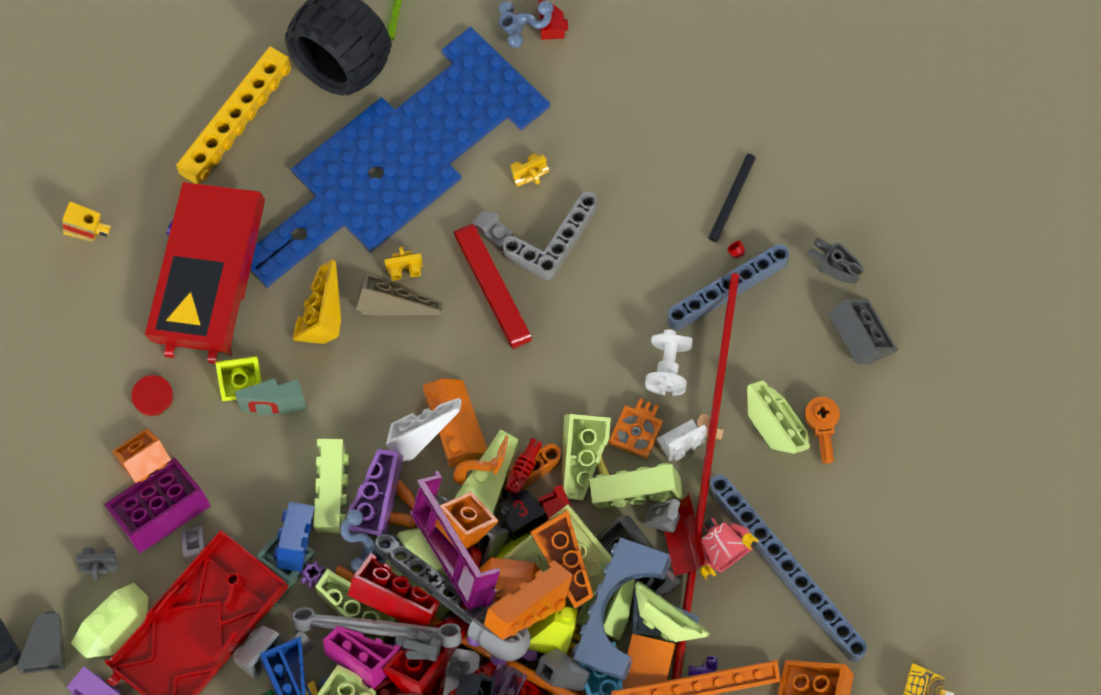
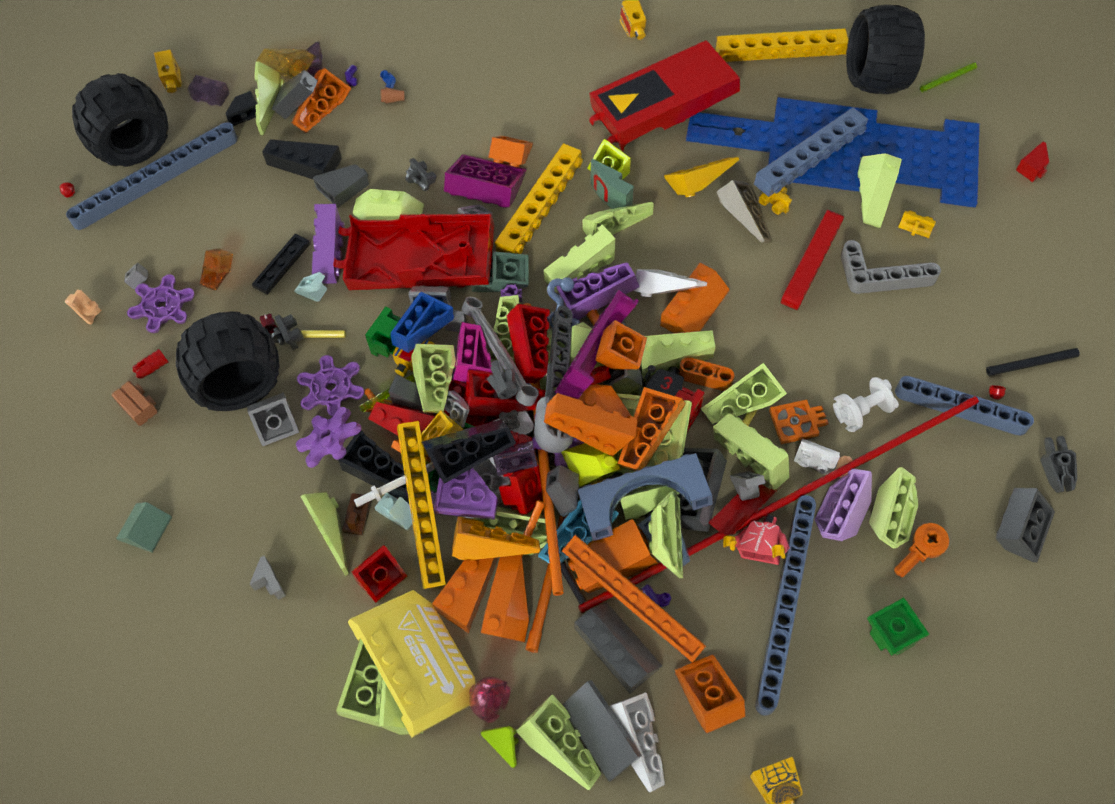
camera: 55 degrees right, 5 degrees down
(152, 395) = (556, 130): red tile -> none
(195, 410) = (539, 200): none -> yellow brick
(294, 536) = (524, 261): wedge -> none
(304, 430) = (617, 218): none -> yellowish green wedge
(387, 259) = (810, 152): none -> sand blue brick
(462, 165) = (877, 182): none -> yellowish green wedge
(462, 468) = (658, 327): orange piece -> none
(491, 229) = (853, 230): light grey slope -> none
(514, 24) = (1009, 141): sand blue piece -> none
(523, 467) = (697, 362): red hinge -> none
(743, 456) = (845, 505): none -> lavender wedge
(871, 501) = (896, 627): none -> green panel

